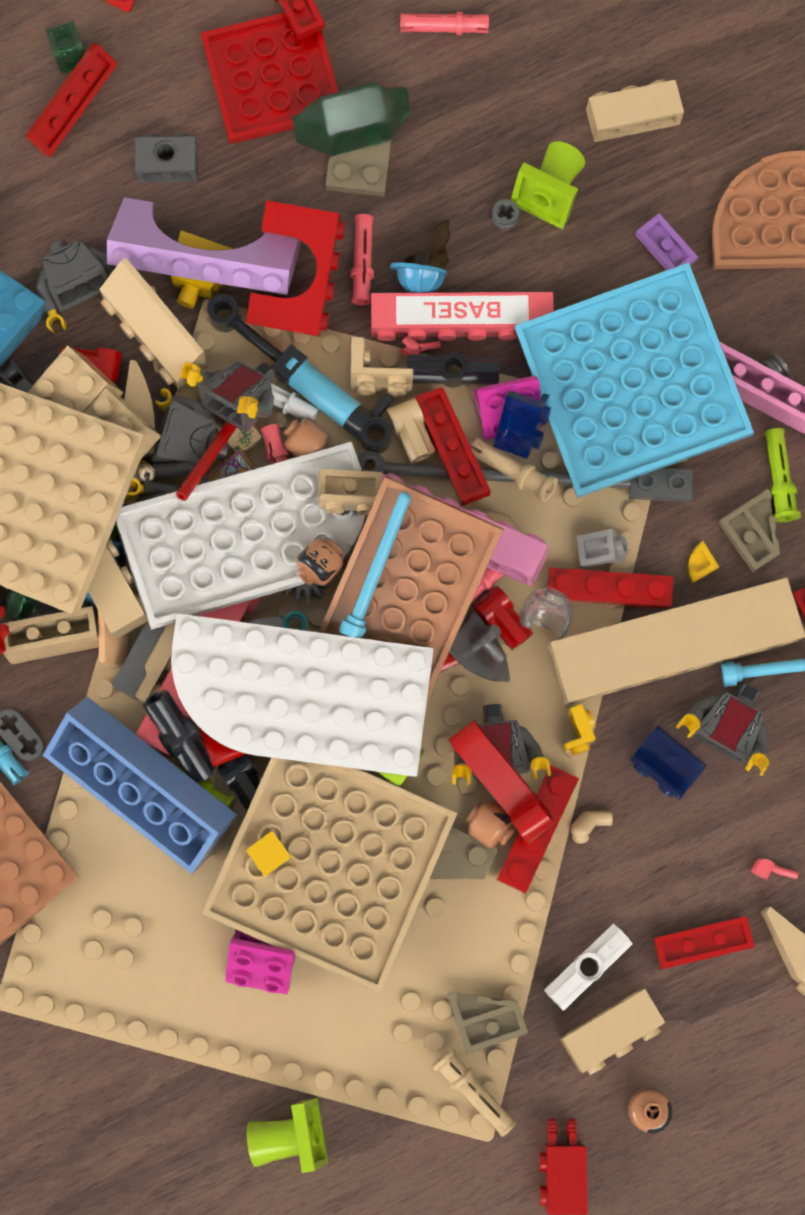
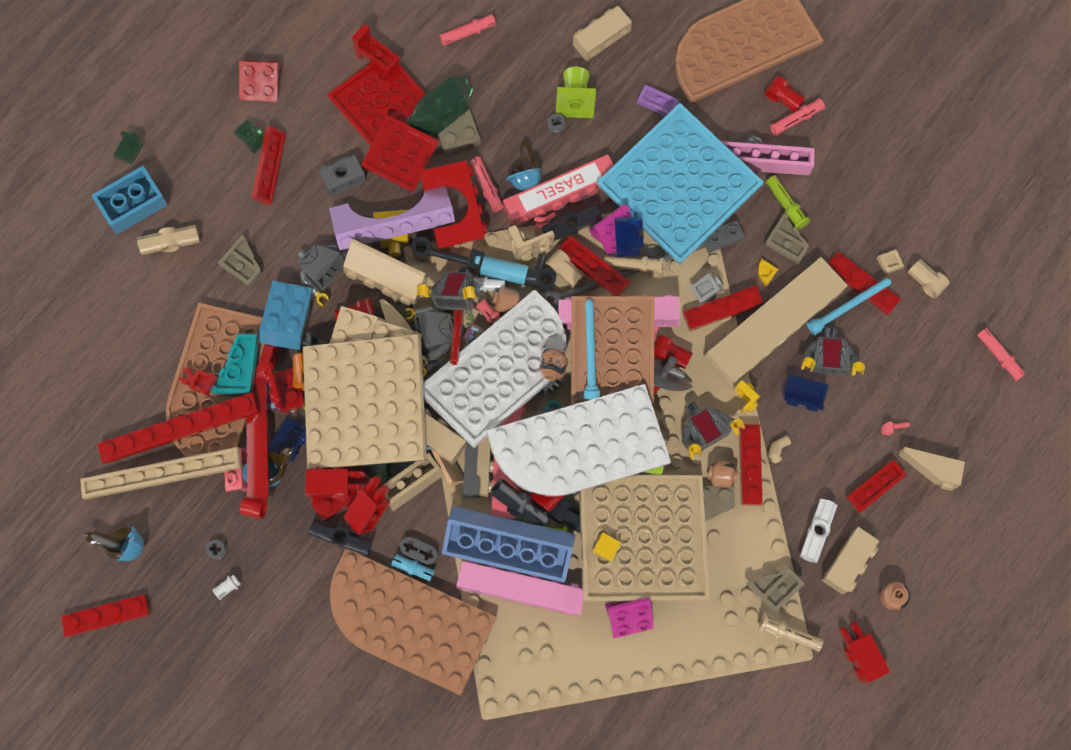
camera: 25 degrees left, 5 degrees down
(128, 853) = (520, 588): none -> bright pink brick
(259, 161) = (399, 153): none -> red plate
(292, 1137) = (696, 711): lime plant -> none
(347, 490) = (549, 316): tan bracket -> none
(502, 781) = (720, 443): red beam -> none
(547, 609) = (695, 335): clear hair -> none

